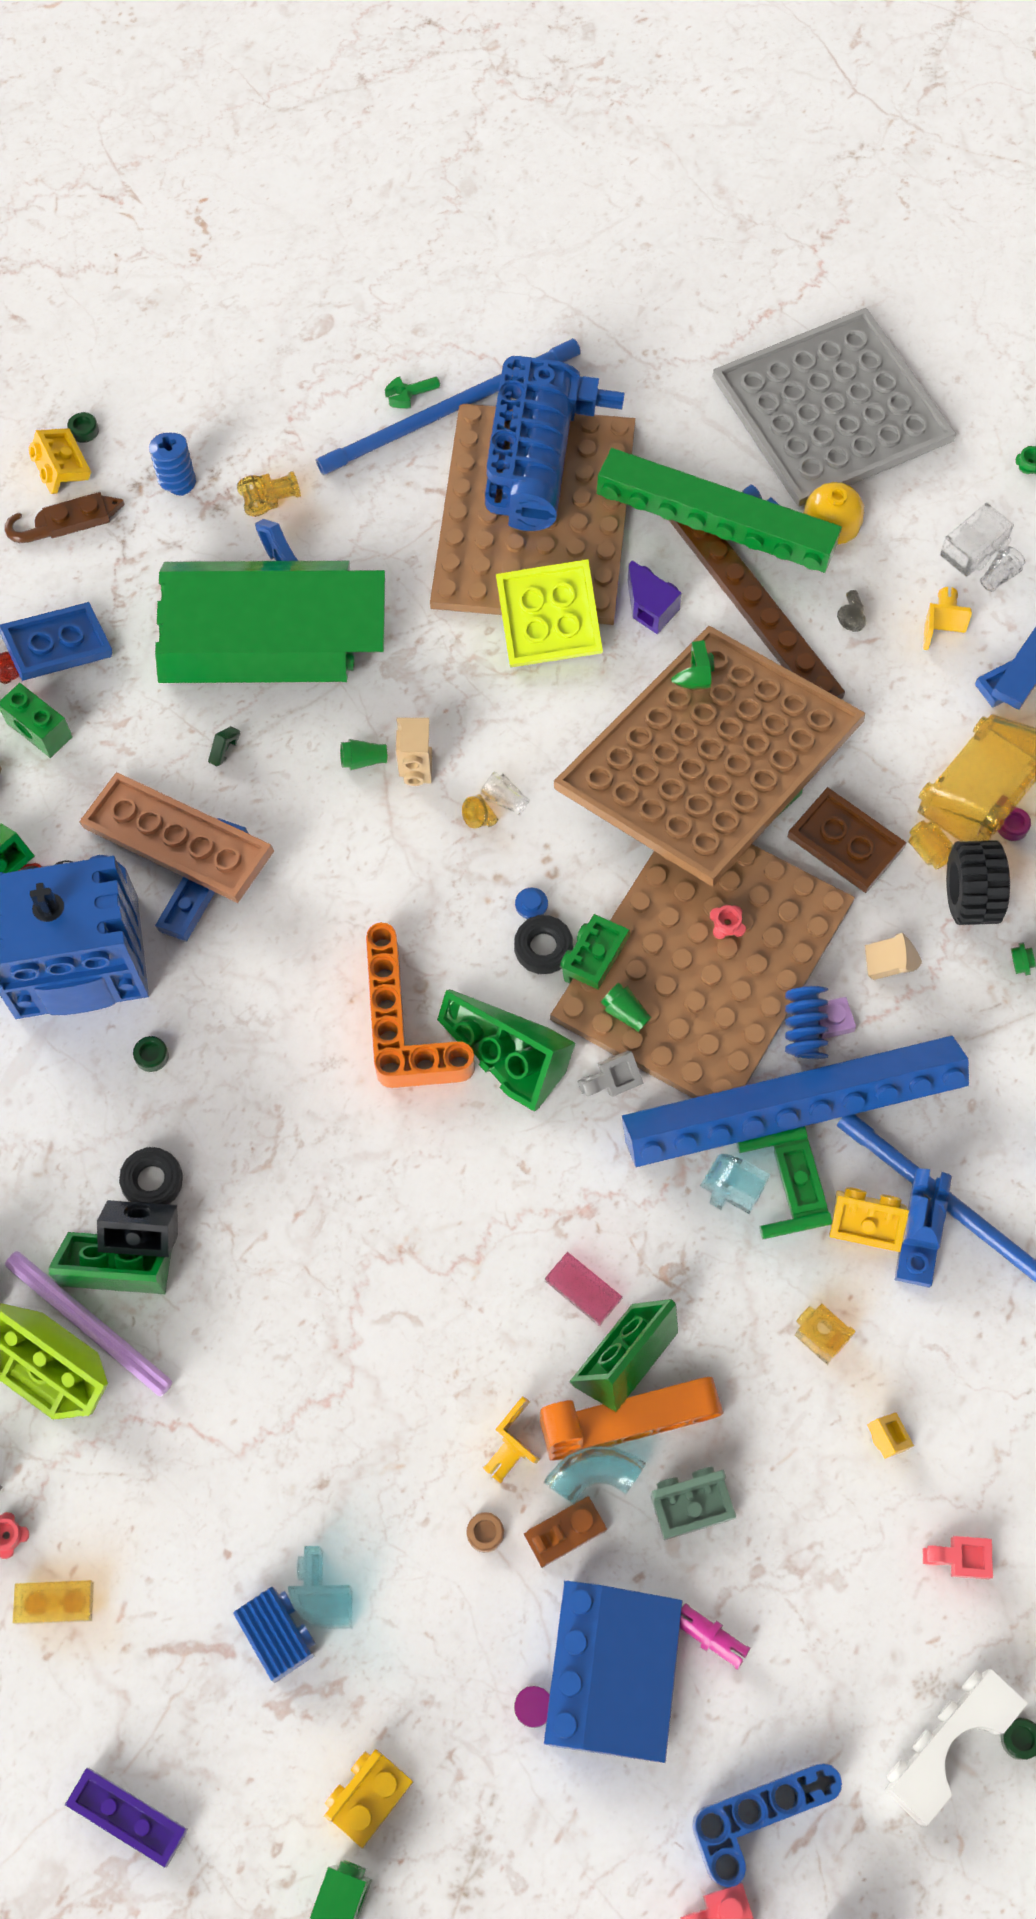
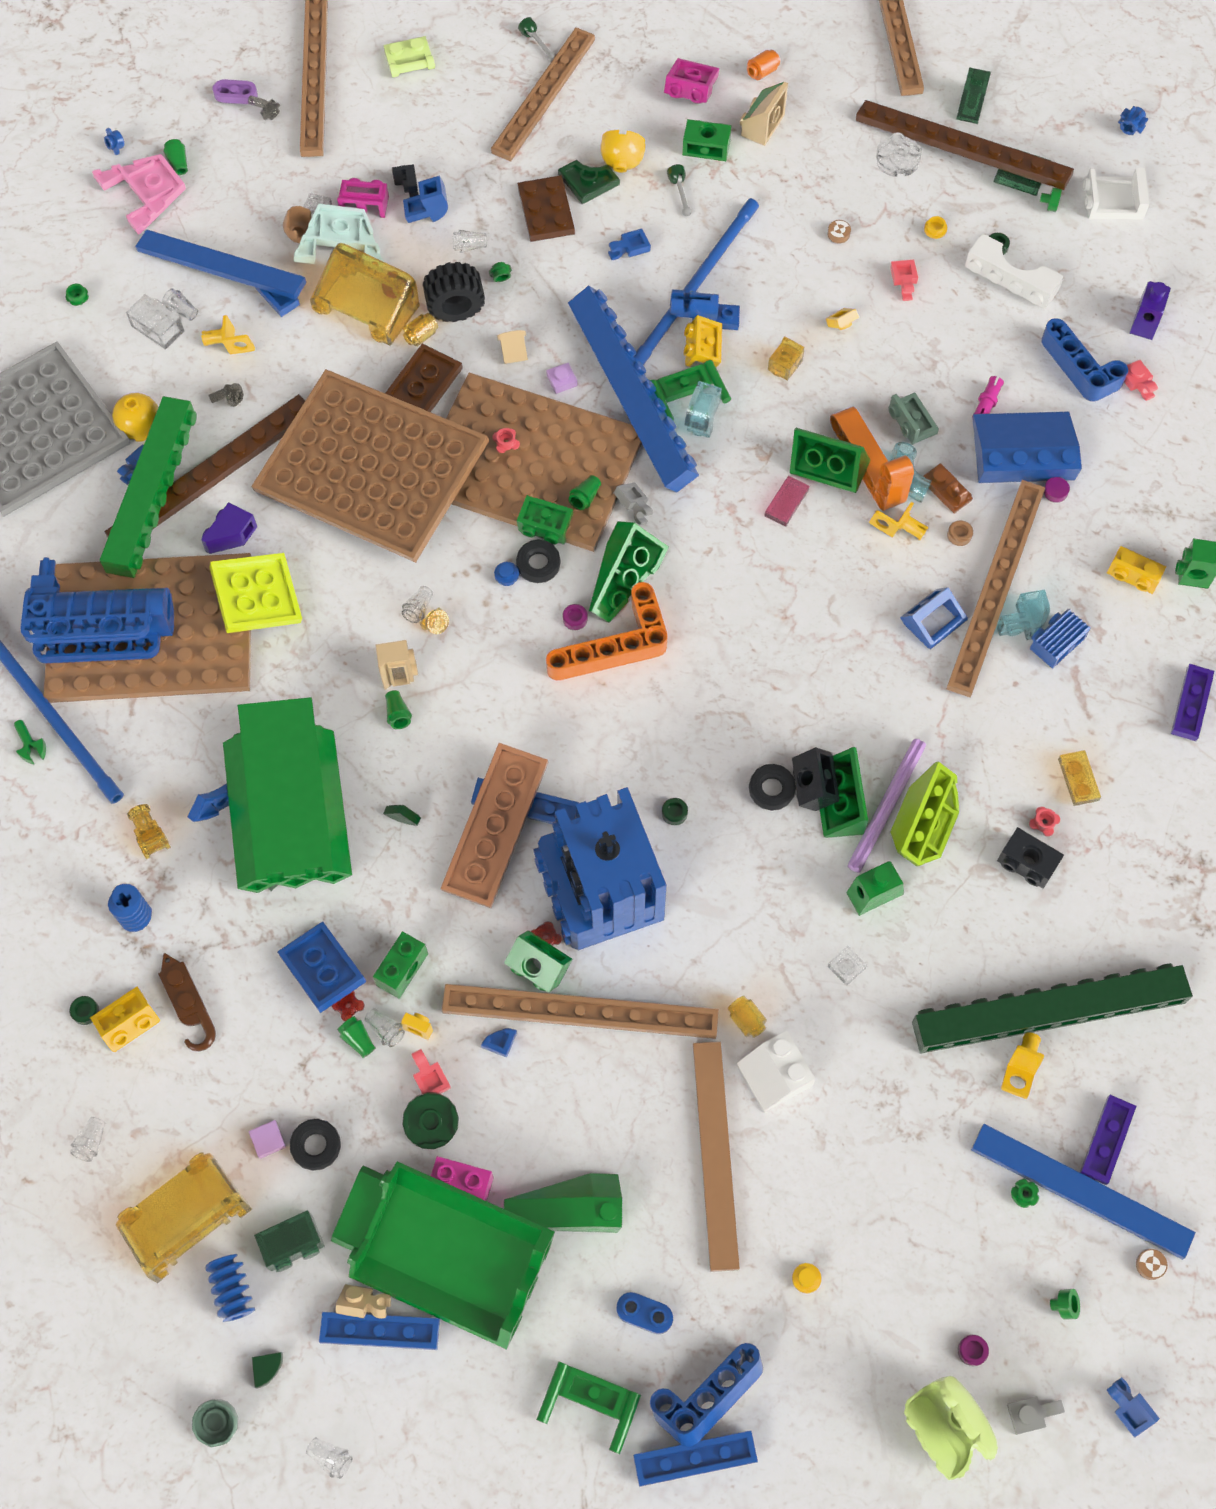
camera: 100 degrees left, 0 degrees up
(366, 1447) = (913, 618): none -> tile
(385, 1564) = (995, 589): none -> medium nougat plate
(453, 976) = (575, 617): none -> magenta tile
(699, 673) = (300, 475): green plate -> none
(806, 1022) = (574, 384): blue piece -> none

